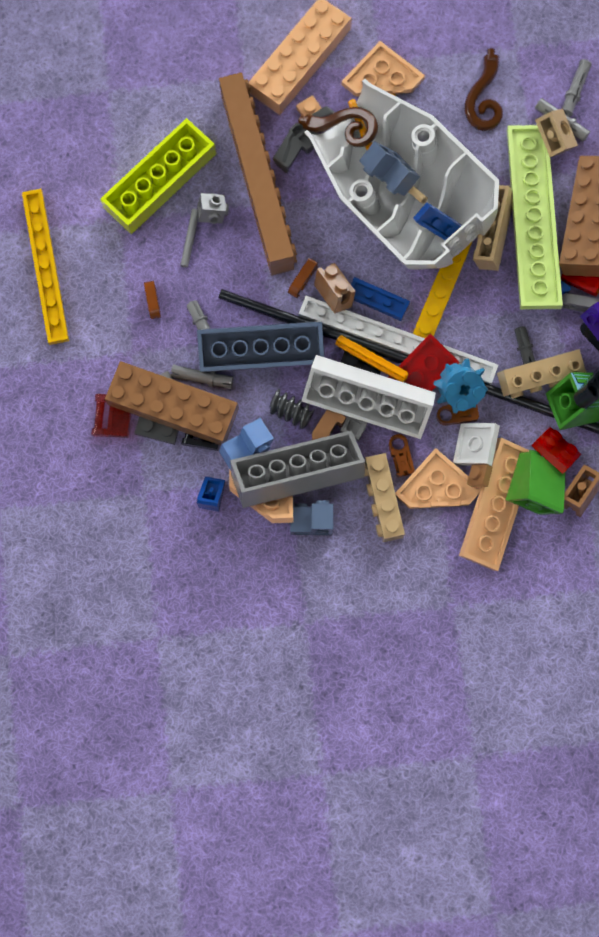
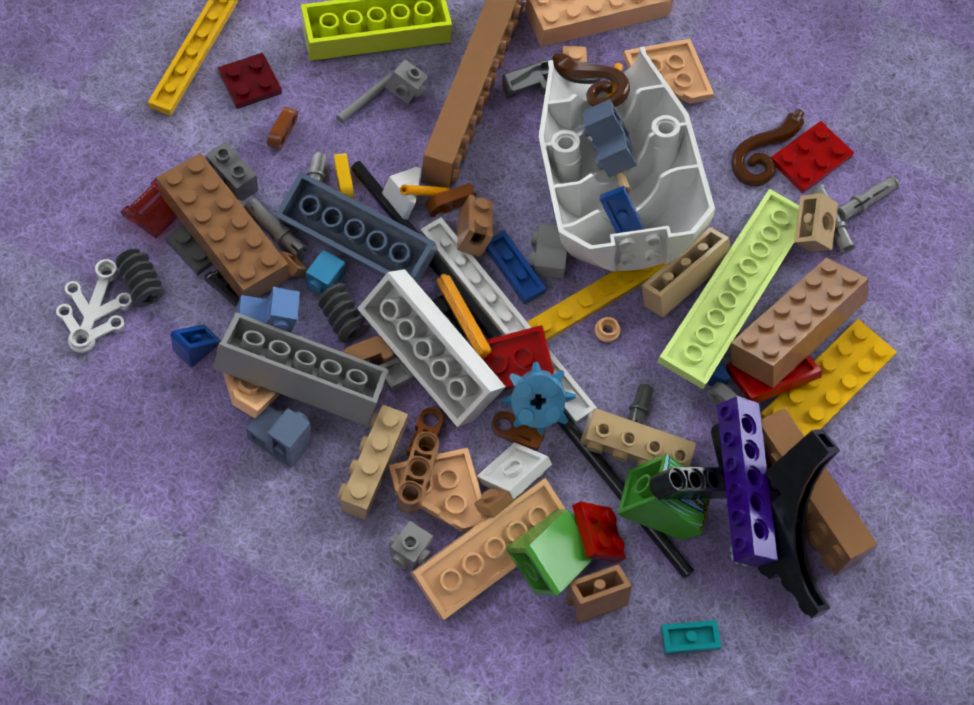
camera: 20 degrees right, 15 degrees down
(102, 277) = (249, 80): none -> dark red plate
(127, 516) = (93, 310): none -> white plant
(141, 474) = (139, 277): none -> dark grey piece
(144, 356) = (233, 171): none -> flat silver brick
(220, 309) = (343, 175): none -> yellow piece
(234, 395) = (295, 265): none -> medium nougat plate
(259, 388) = (324, 272): none -> dark azure brick
(269, 294) = (402, 203): none -> white slope
(285, 285) = (417, 190): none -> light orange piece
(394, 273) = (549, 255): none -> light grey brick
(421, 478) = (417, 484): none -> medium nougat beam
(447, 531) = (410, 546): none -> light grey brick
(467, 297) = (610, 323): none -> light nougat plate
(519, 79) = (812, 157): none -> red plate

